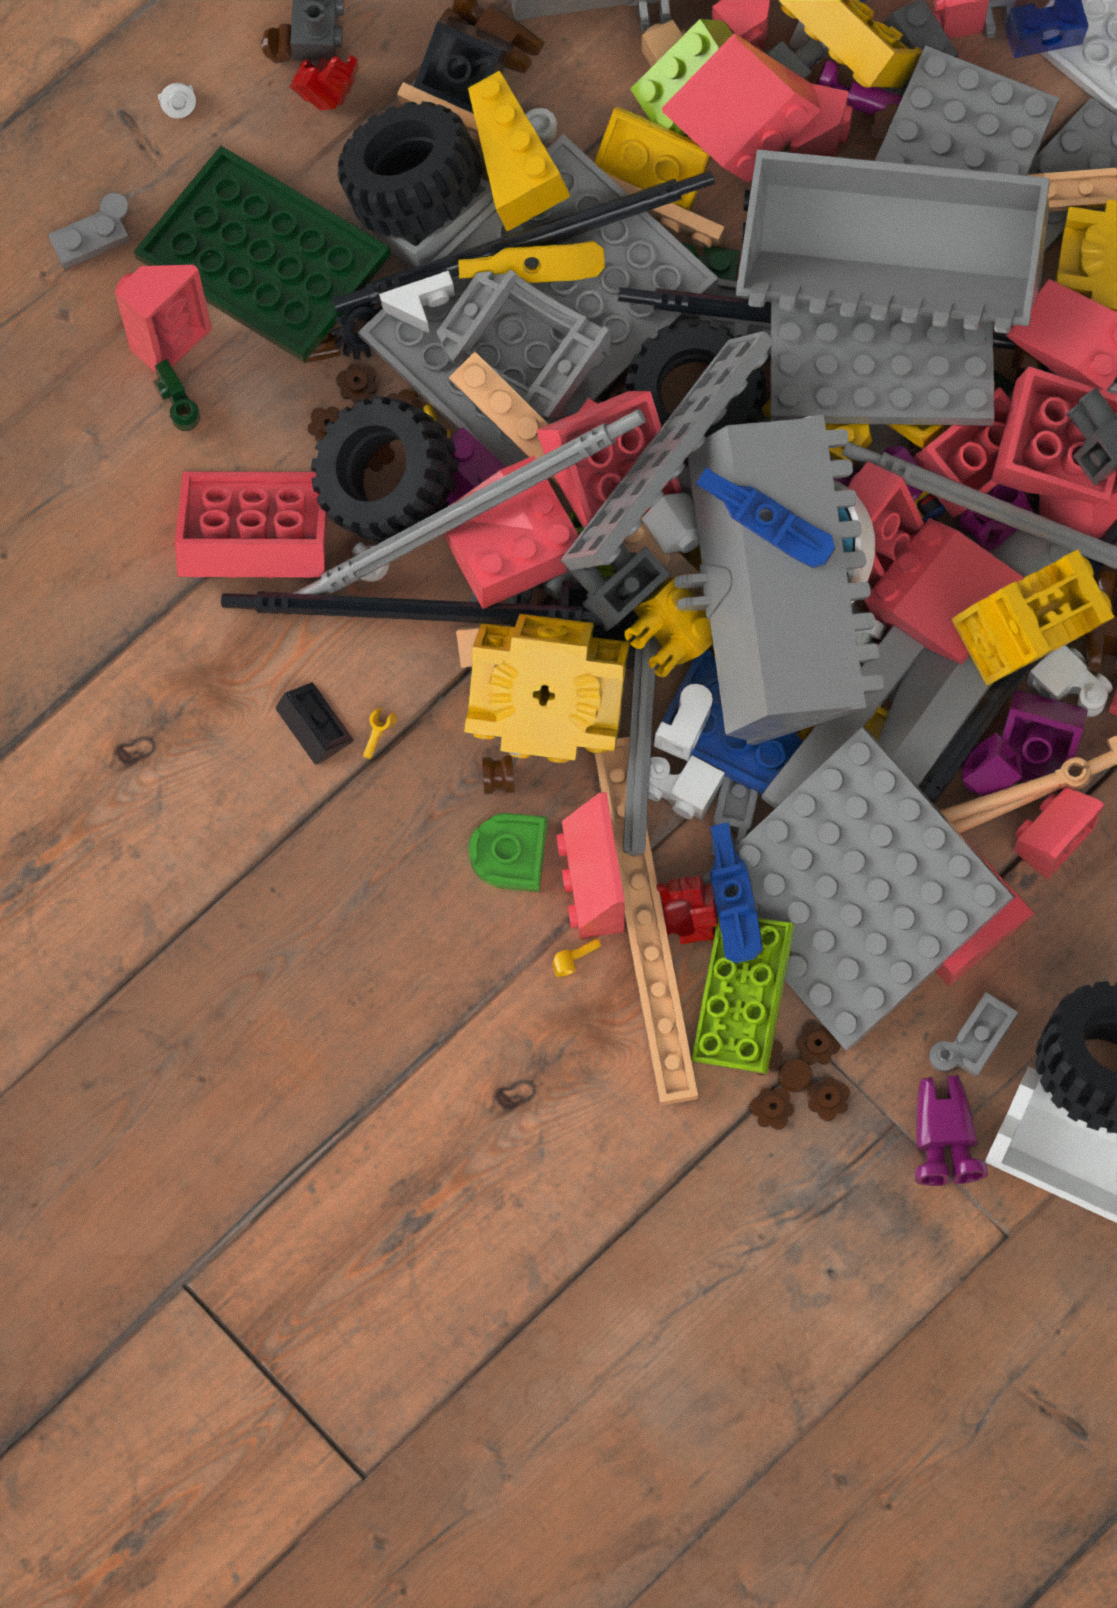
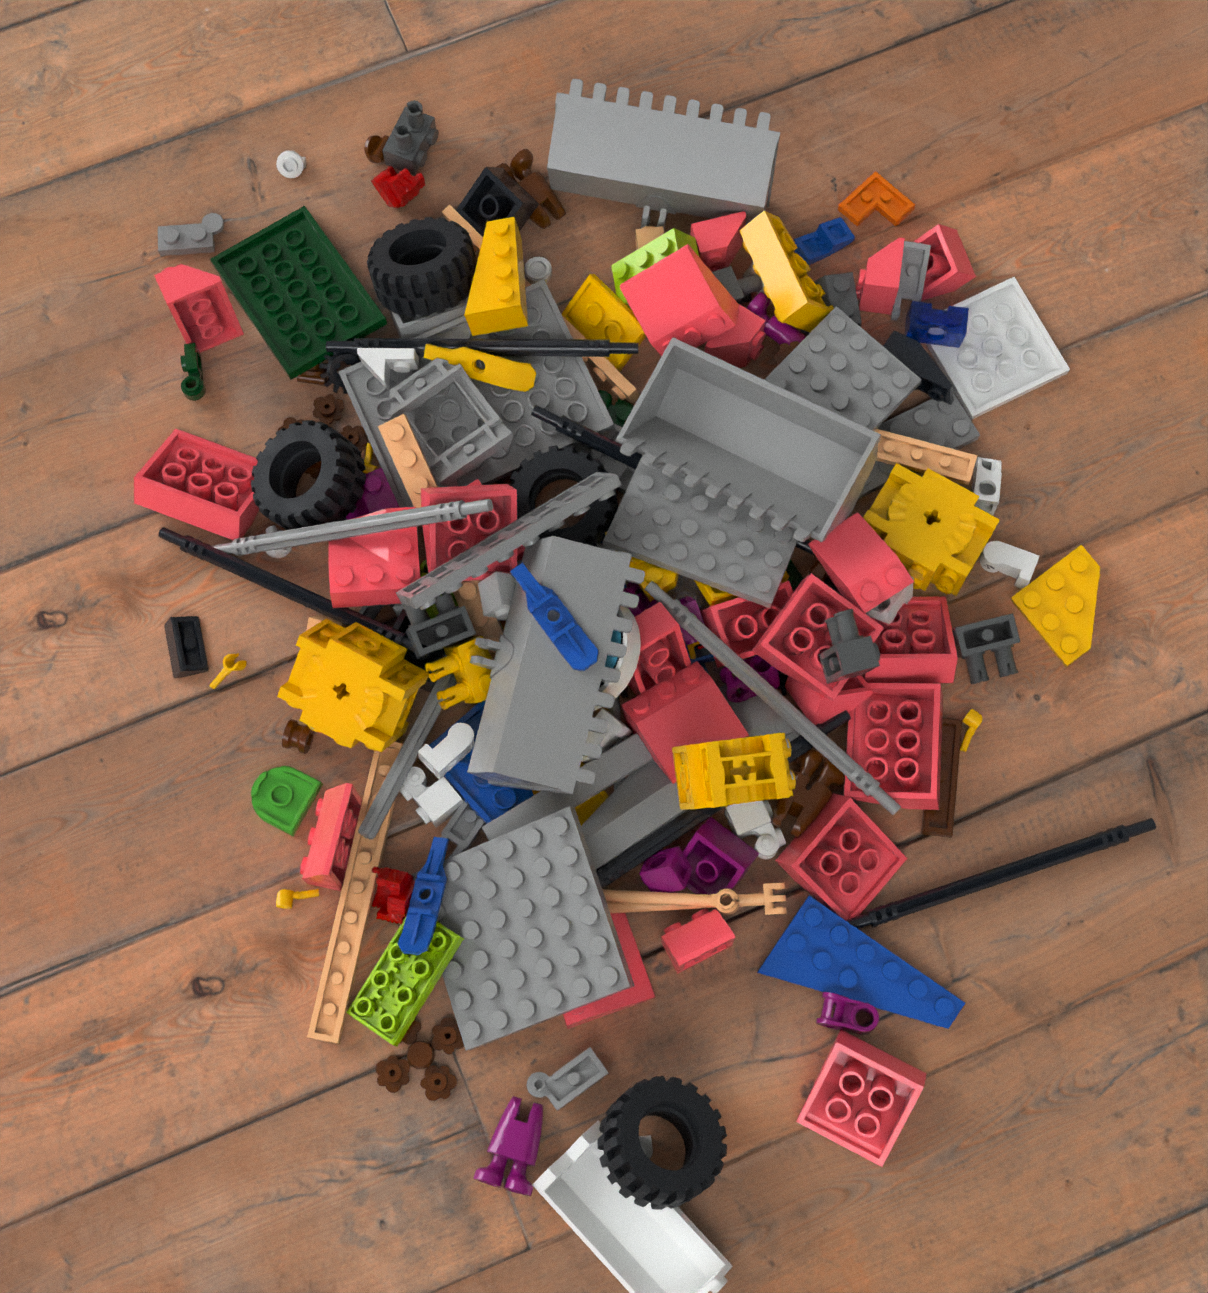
camera: 20 degrees right, 0 degrees up
(1041, 75) = (919, 362): none -> black slope

